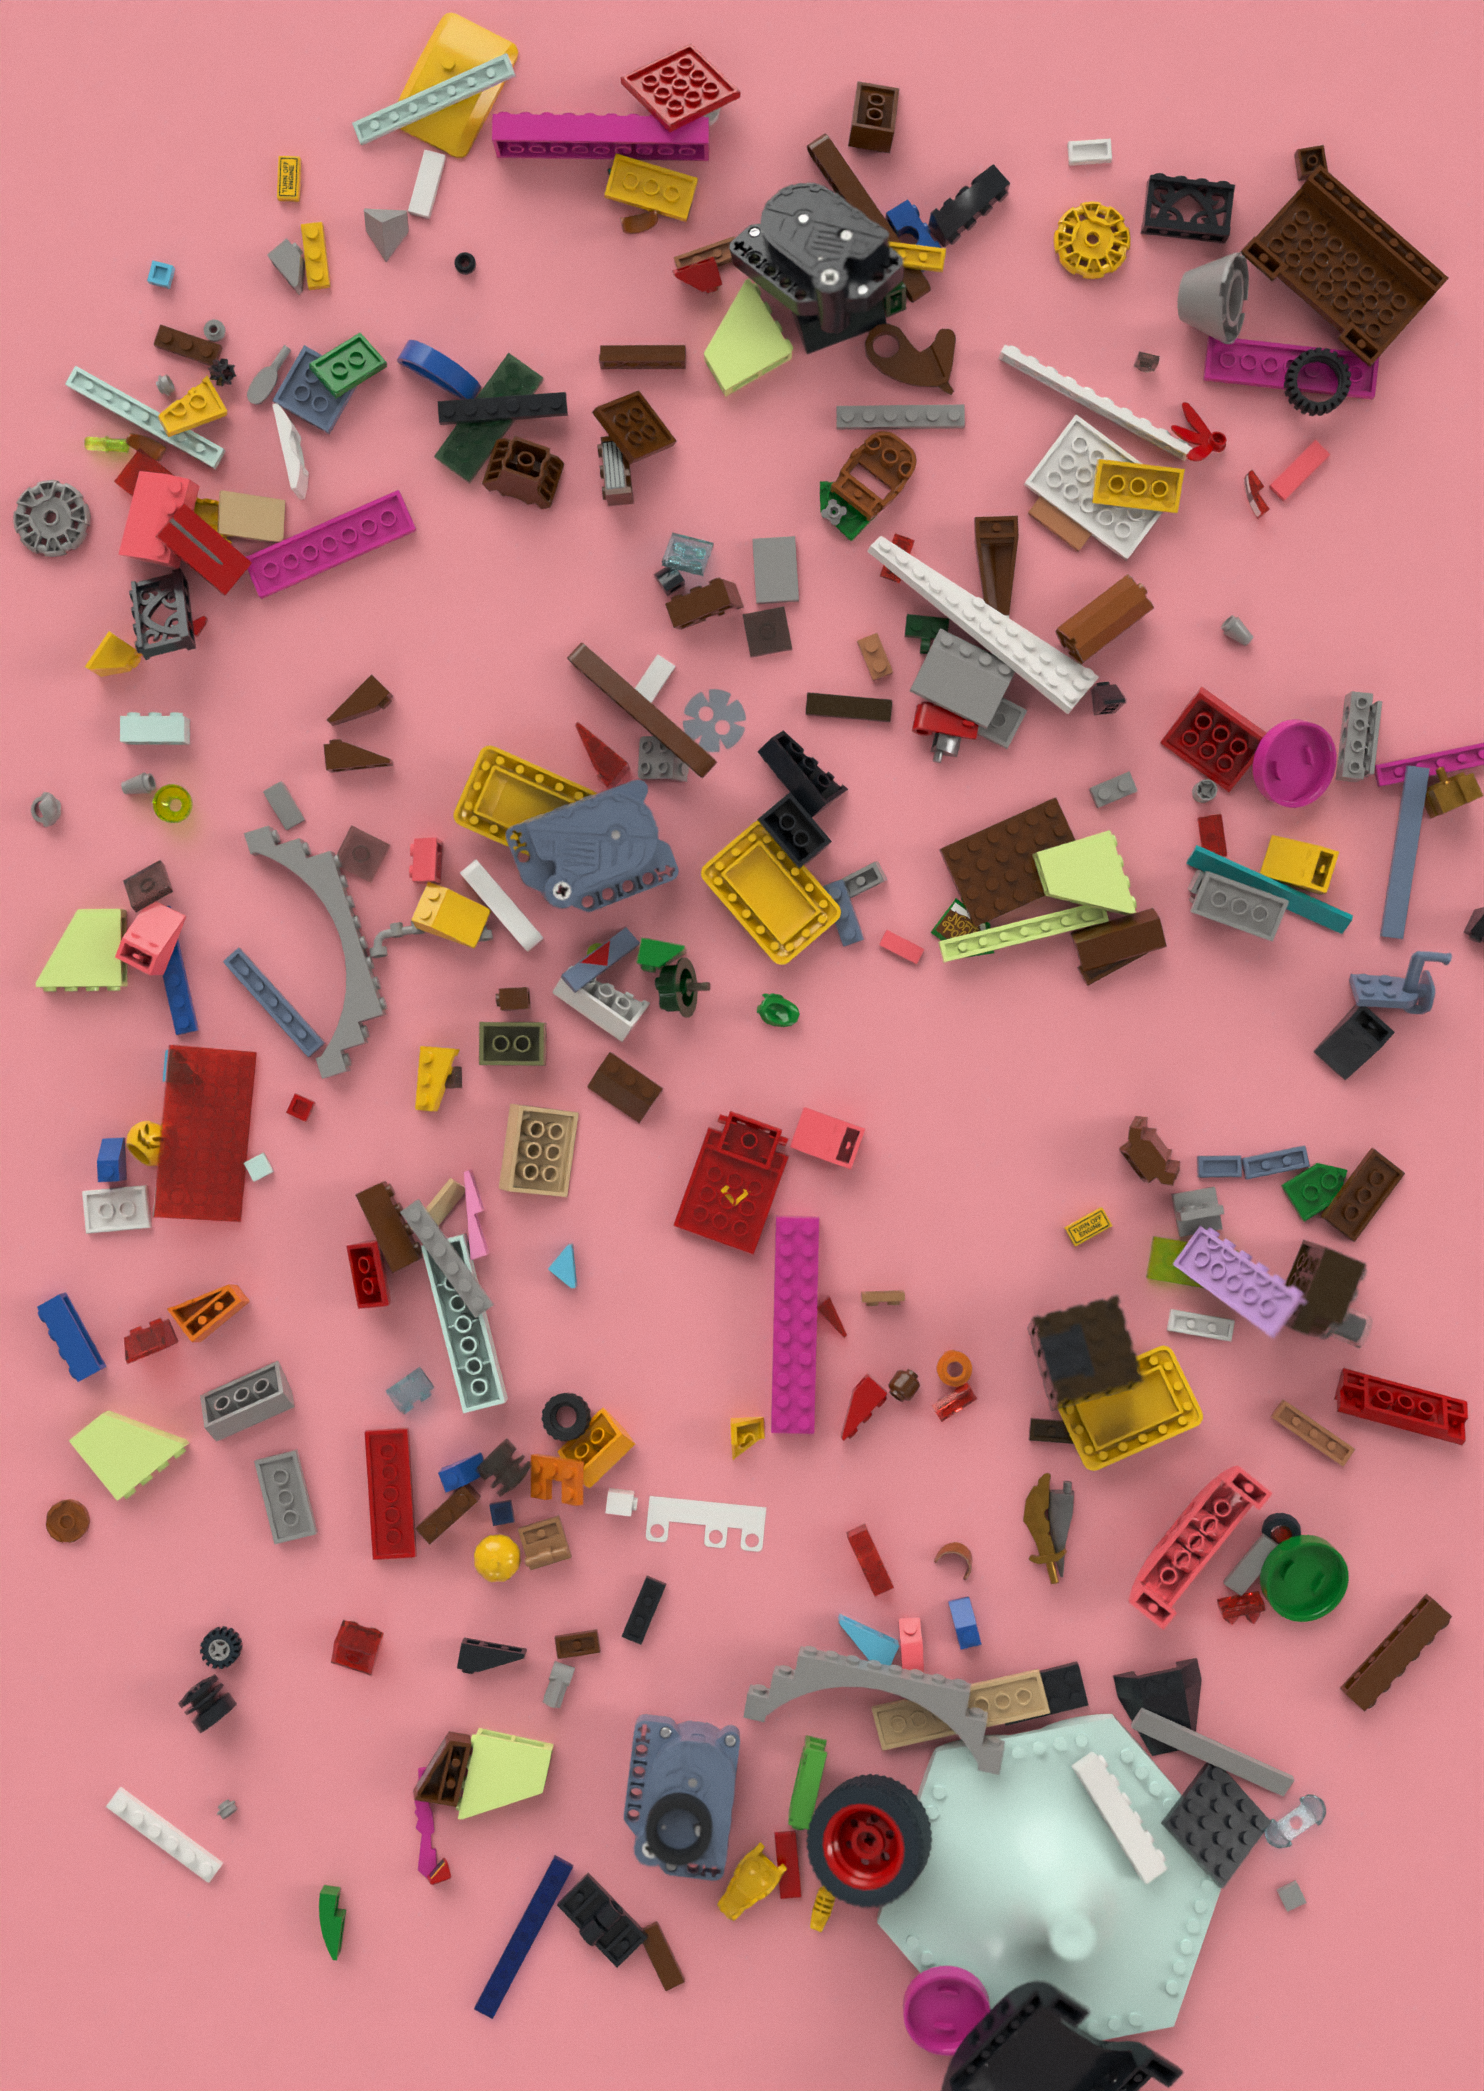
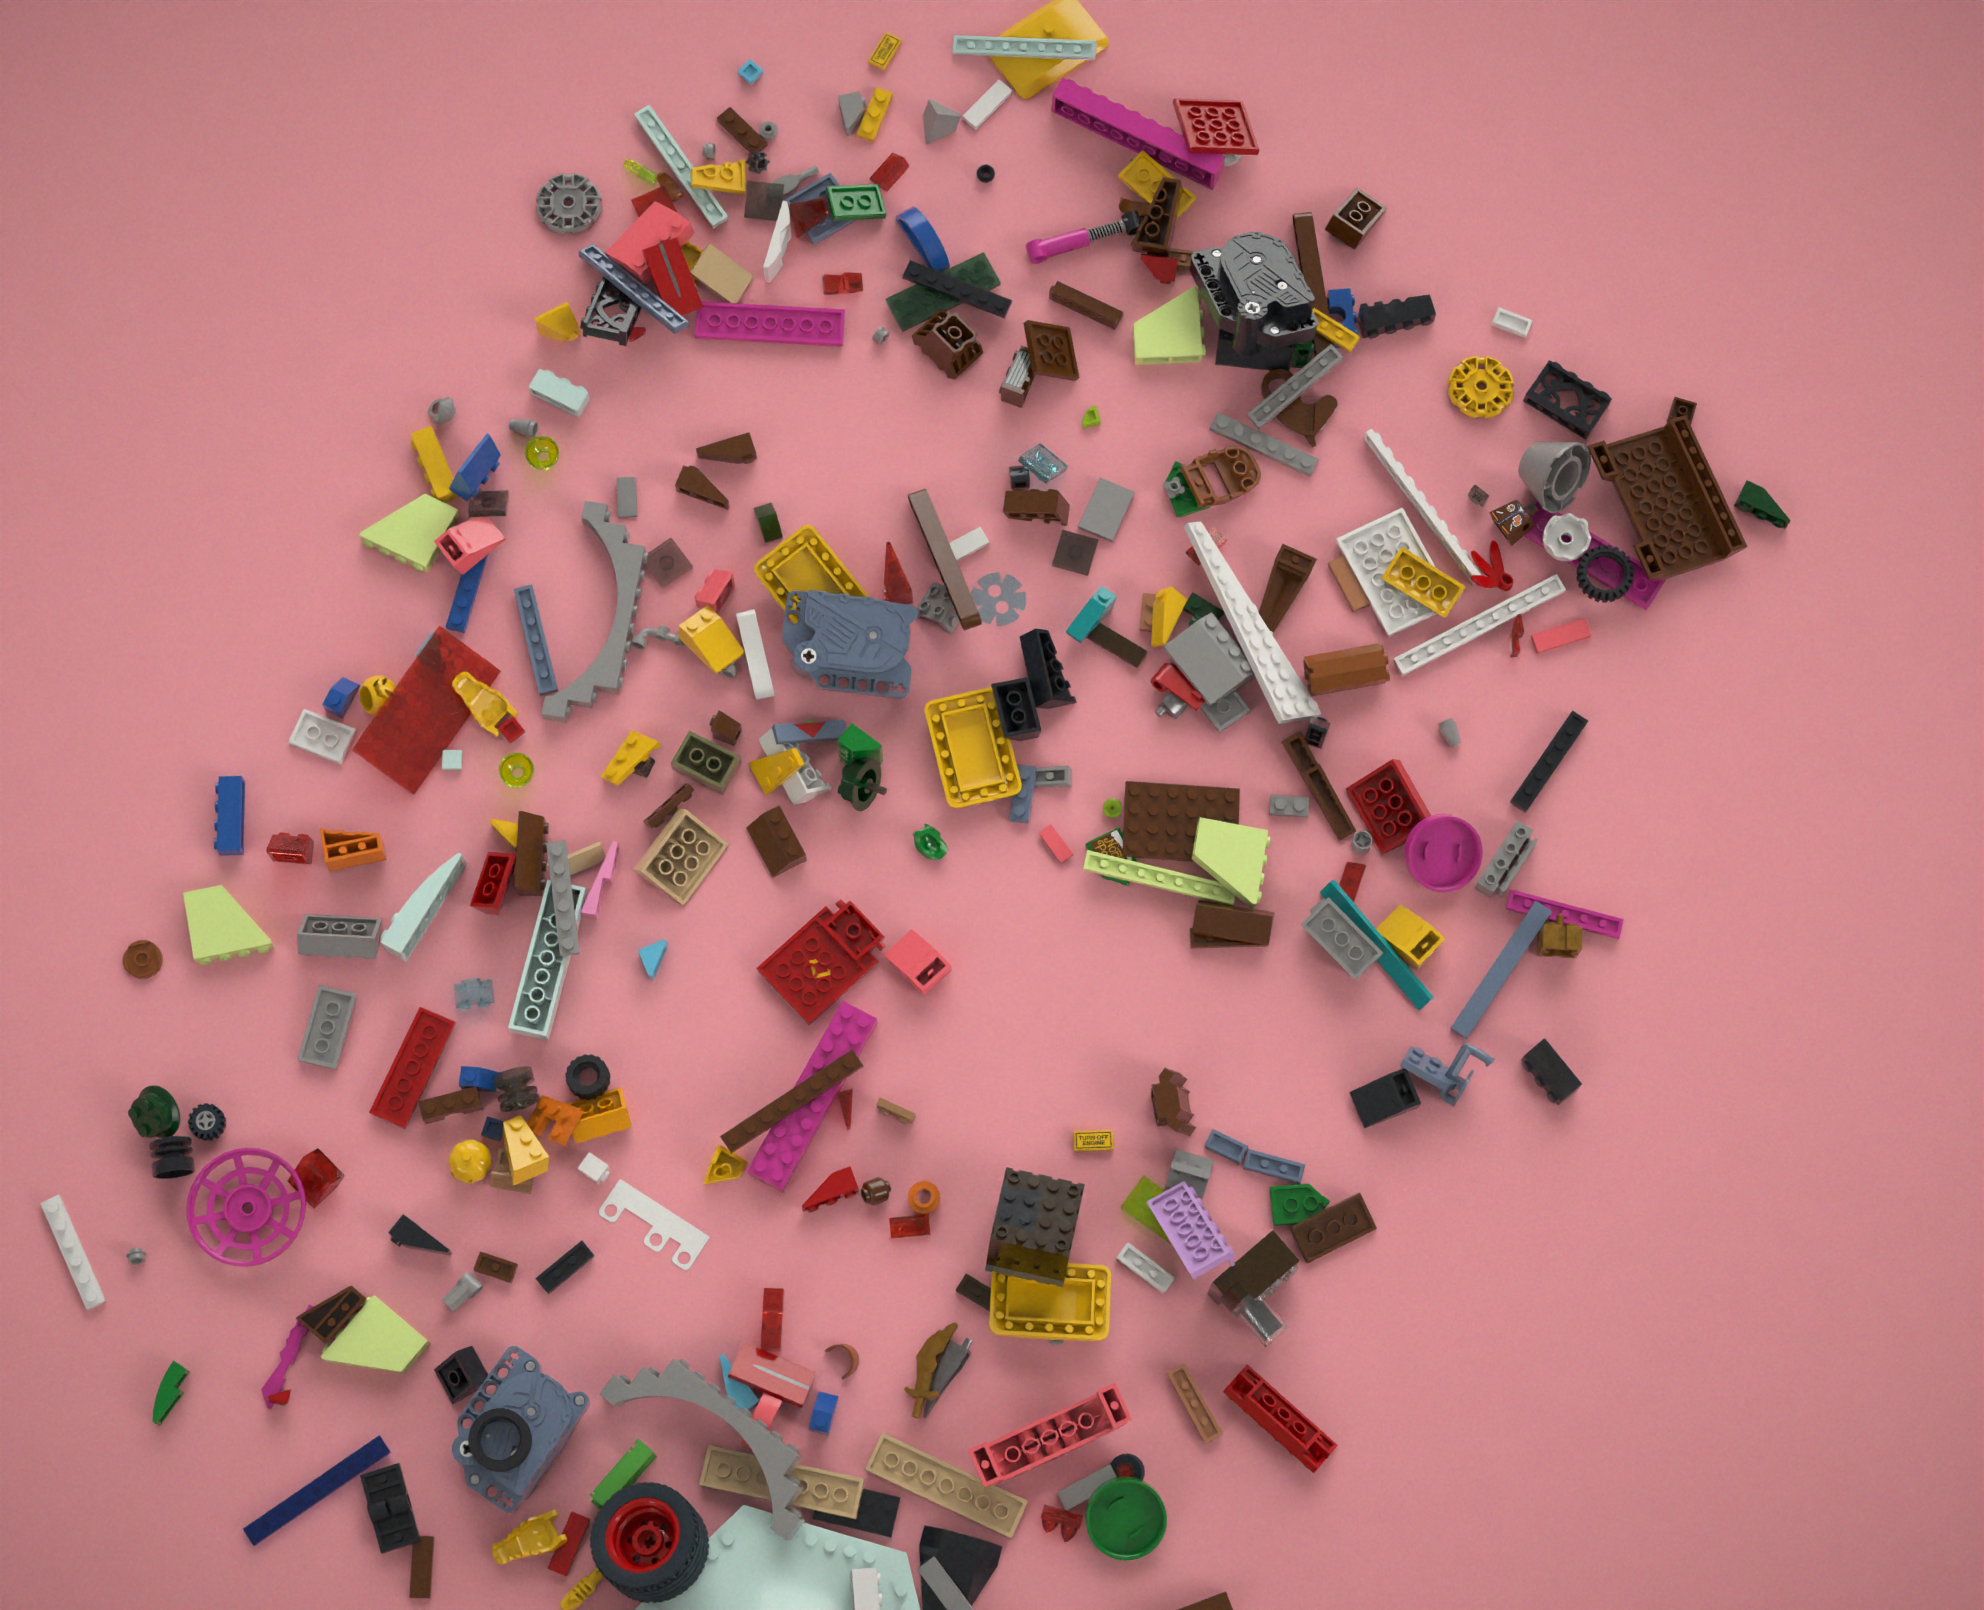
camera: 25 degrees right, 15 degrees down
(71, 871) = (434, 462): none -> yellow brick
(115, 858) = (476, 469): none -> blue slope
(166, 1671) = (155, 1113): none -> dark green piece
(170, 580) = (633, 289): none -> sand blue tile
(251, 412) = (763, 200): none -> clear smoke tile
(258, 1096) = (484, 703): none -> yellow animal
(298, 1721) = (237, 1199): none -> dark pink dish
(306, 405) = (808, 214): none -> clear red slope
(311, 1339) = (420, 909): none -> light aqua slope
(318, 1151) = (514, 761): none -> clear neon green piece
(351, 1212) = (507, 831): none -> yellow slope
(364, 312) = (890, 171): none -> clear red slope
(381, 461) = (842, 284): none -> clear red slope
(440, 758) = (768, 522): none -> dark green slope
(450, 499) = (881, 335): none -> light grey bush
(499, 1105) = (669, 806): none -> reddish brown plate
(544, 1525) = (523, 1151): none -> yellow wedge
(566, 319) = (1041, 250): none -> piece
(586, 1016) = (776, 769): none -> yellow wing
(602, 1761) = (461, 1374): none -> black slope
(676, 234) = (1158, 225): none -> reddish brown wedge
(710, 478) = (1091, 418): none -> lime tile
(780, 1345) = (791, 1101): none -> reddish brown plate
(819, 692) = (1092, 614): none -> teal slope
(893, 652) = (1166, 612): none -> yellow slope
(897, 1614) = (771, 1374): none -> tile
(904, 338) = (1295, 386): none -> light grey plate
(939, 882) = (1112, 808): none -> lime tile
(1113, 1631) = (946, 1485): none -> tan plate
(1132, 752) = (1318, 785): none -> reddish brown slope
(1197, 370) = (1514, 520): none -> reddish brown torso
(1213, 501) = (1479, 625): none -> white plate
(1264, 348) = (1566, 525): none -> white plate
(1350, 610) = (1549, 761): none -> black plate
(1438, 223) = (1759, 502): none -> dark green slope

